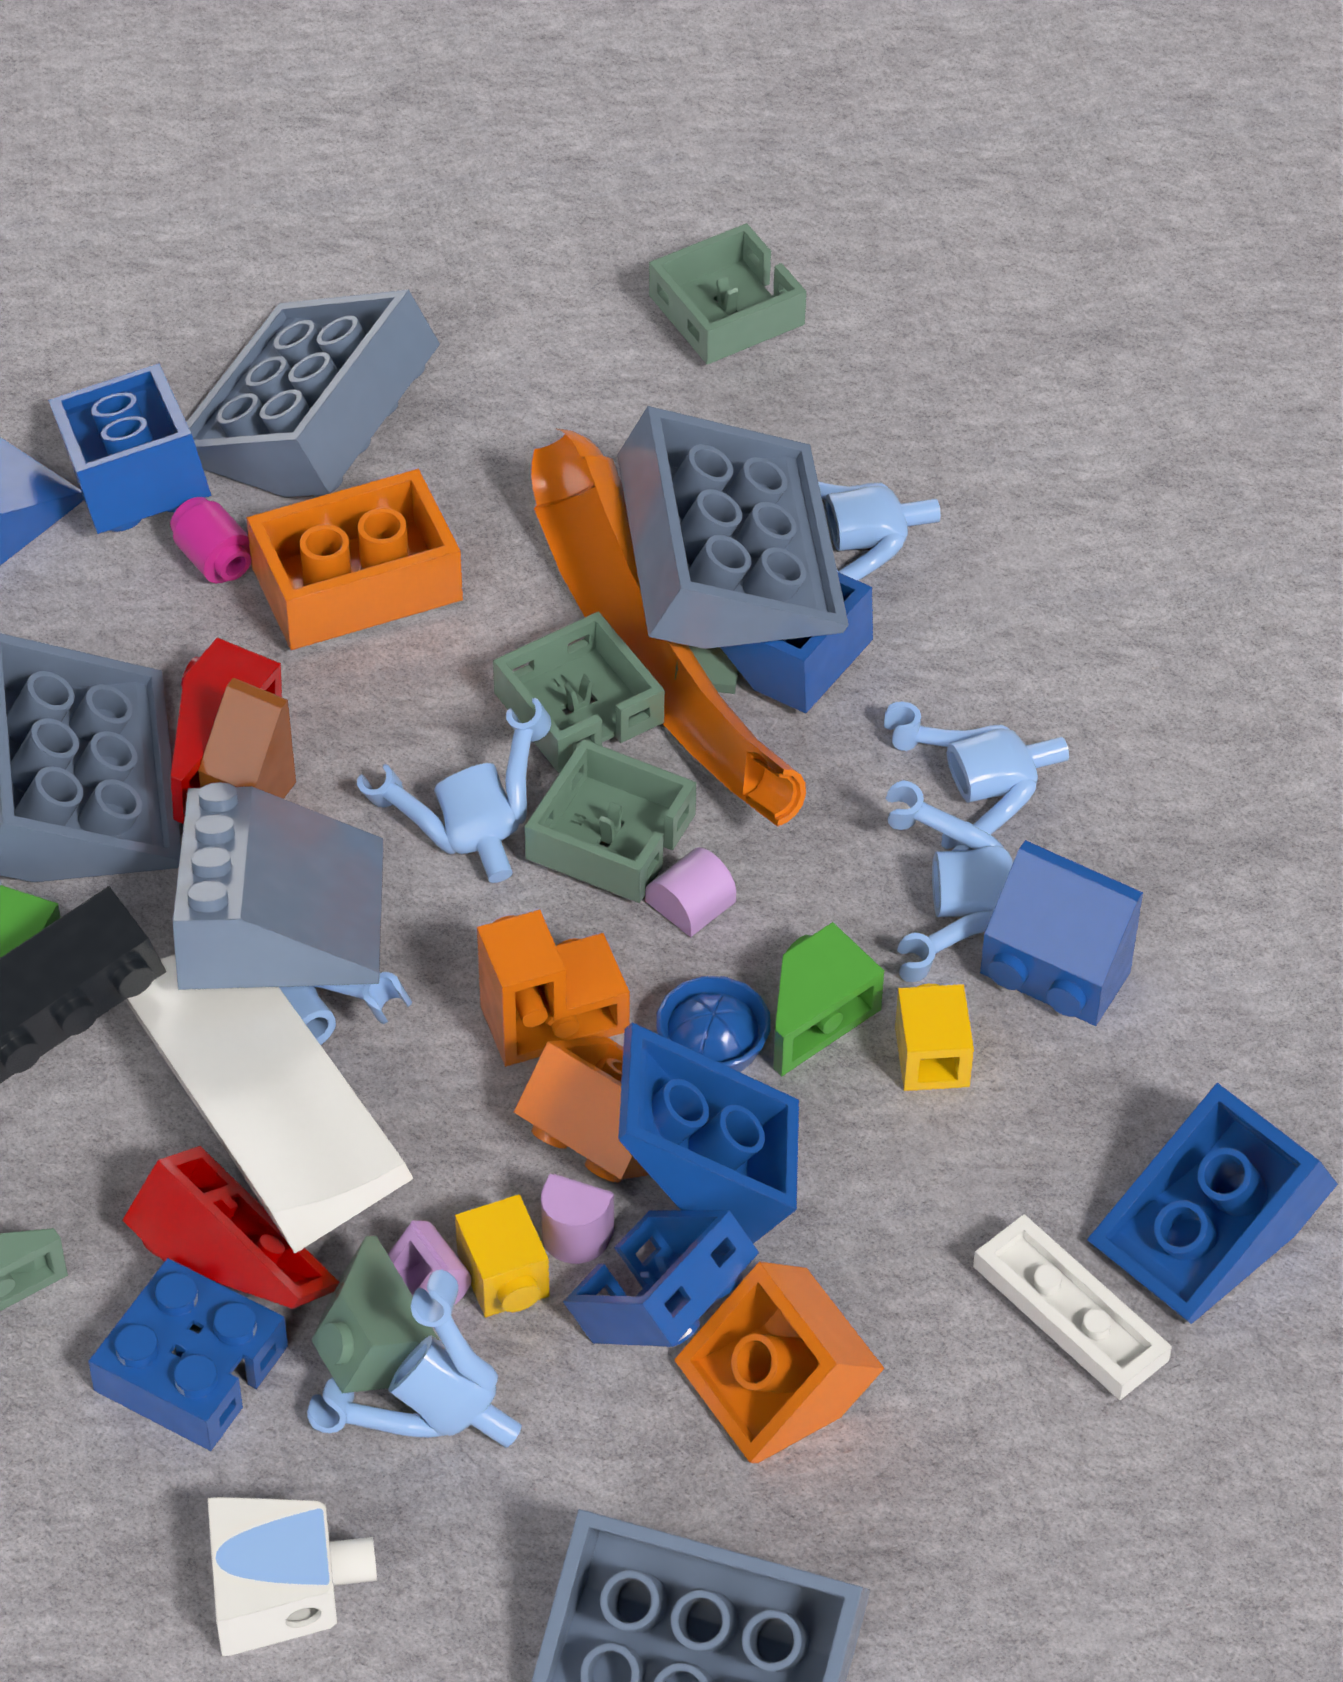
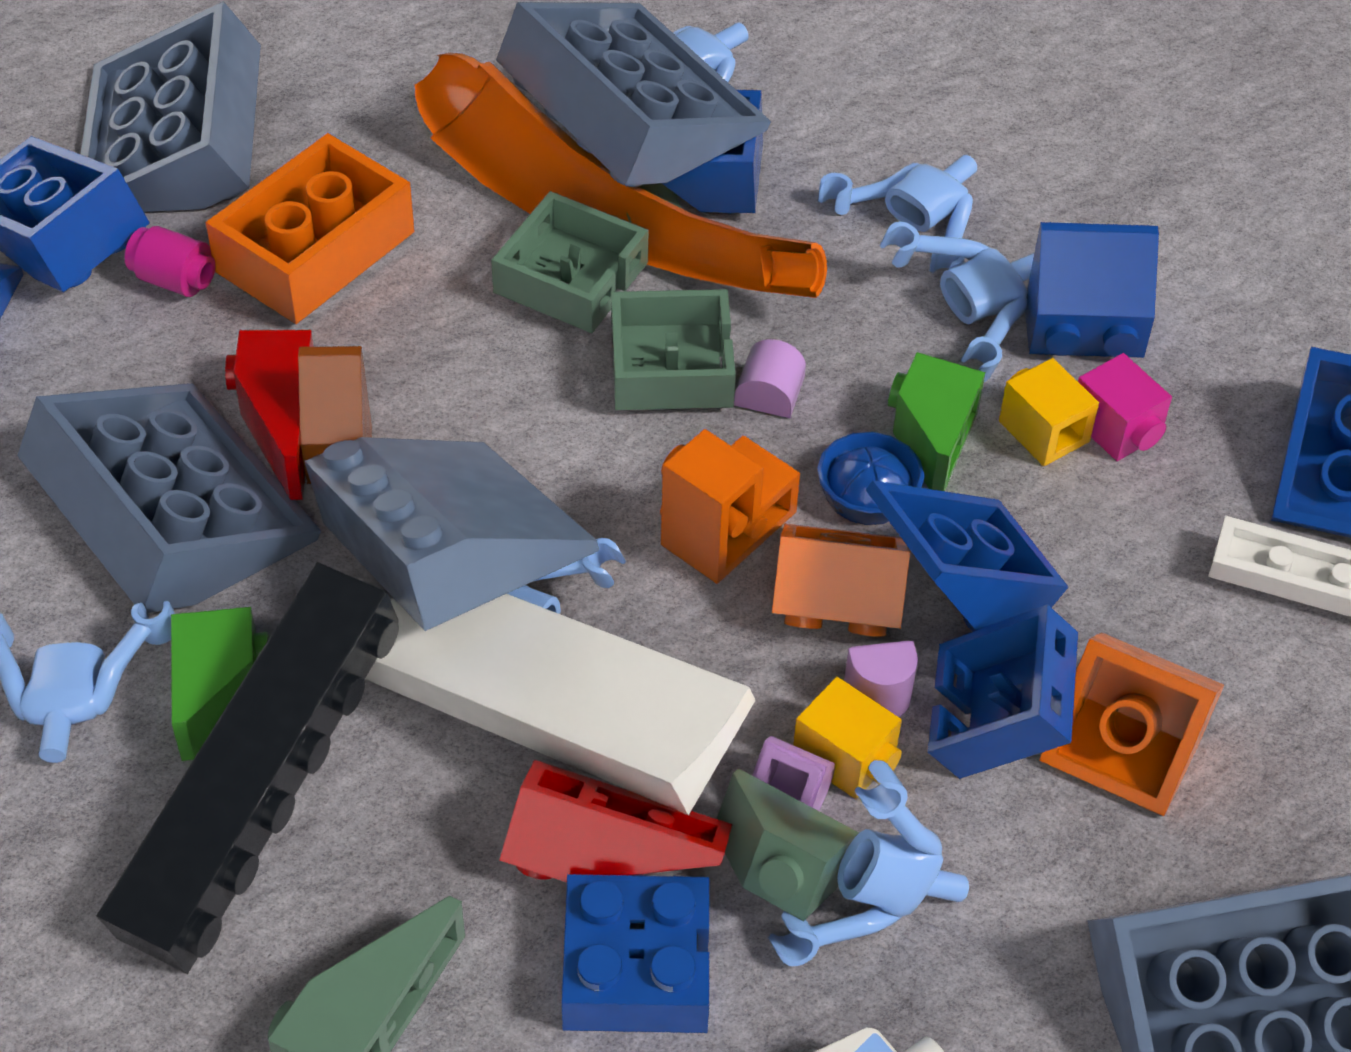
camera: 30 degrees left, 0 degrees up
(473, 800) = (546, 380): light blue piece -> none
(1011, 1064) = (1129, 408): none -> dark pink brick

